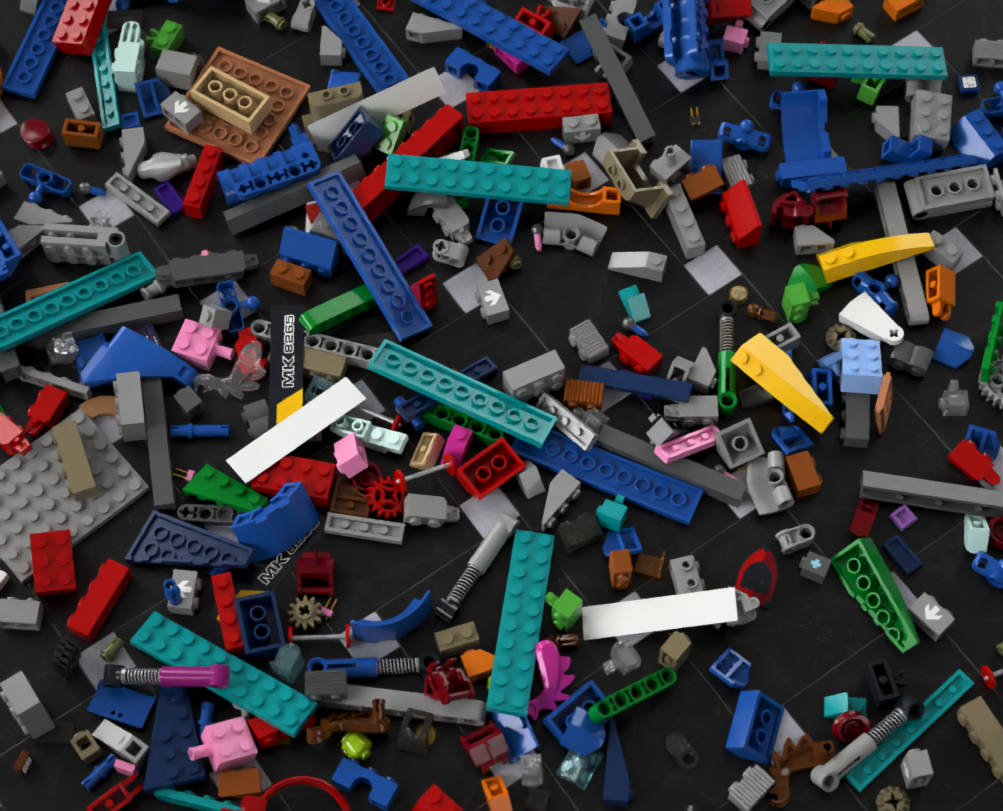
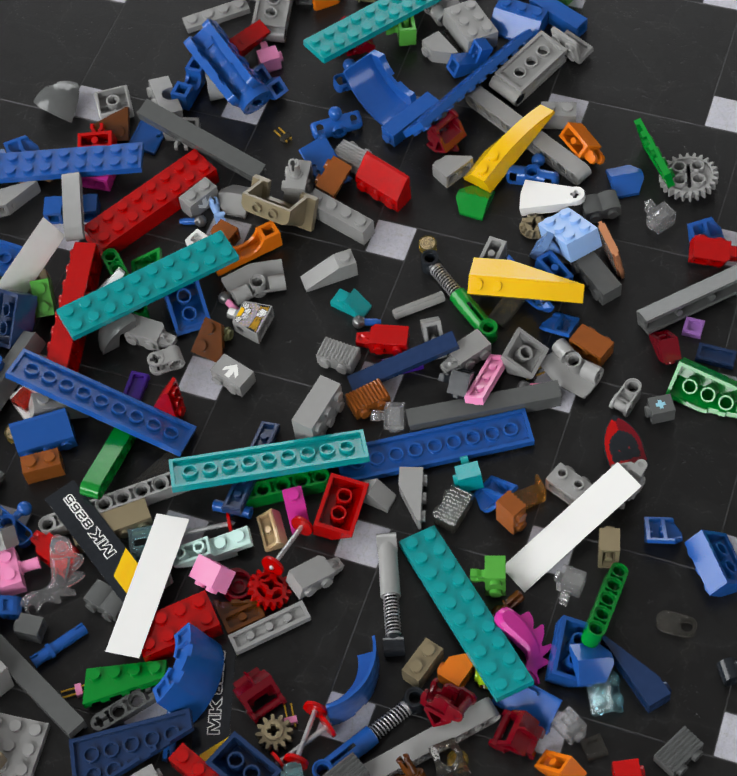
camera: 30 degrees left, 5 degrees down
(348, 616) = (314, 709): none -> red axle
(470, 70) = (73, 206): none -> light grey beam
(543, 264) = (251, 319): none -> torso
(568, 422) = (374, 427): light grey plate -> none
(588, 147) = (215, 208): none -> light blue arm
(688, 342) = (418, 305): none -> light grey axle
(703, 373) = (450, 318): light grey slope -> none
(754, 311) = (449, 248): reddish brown axle -> none
(761, 43) = (301, 55): light grey brick -> none
(791, 211) = (418, 153): dark red piece -> none
(797, 302) = (481, 219): bright green brick -> none

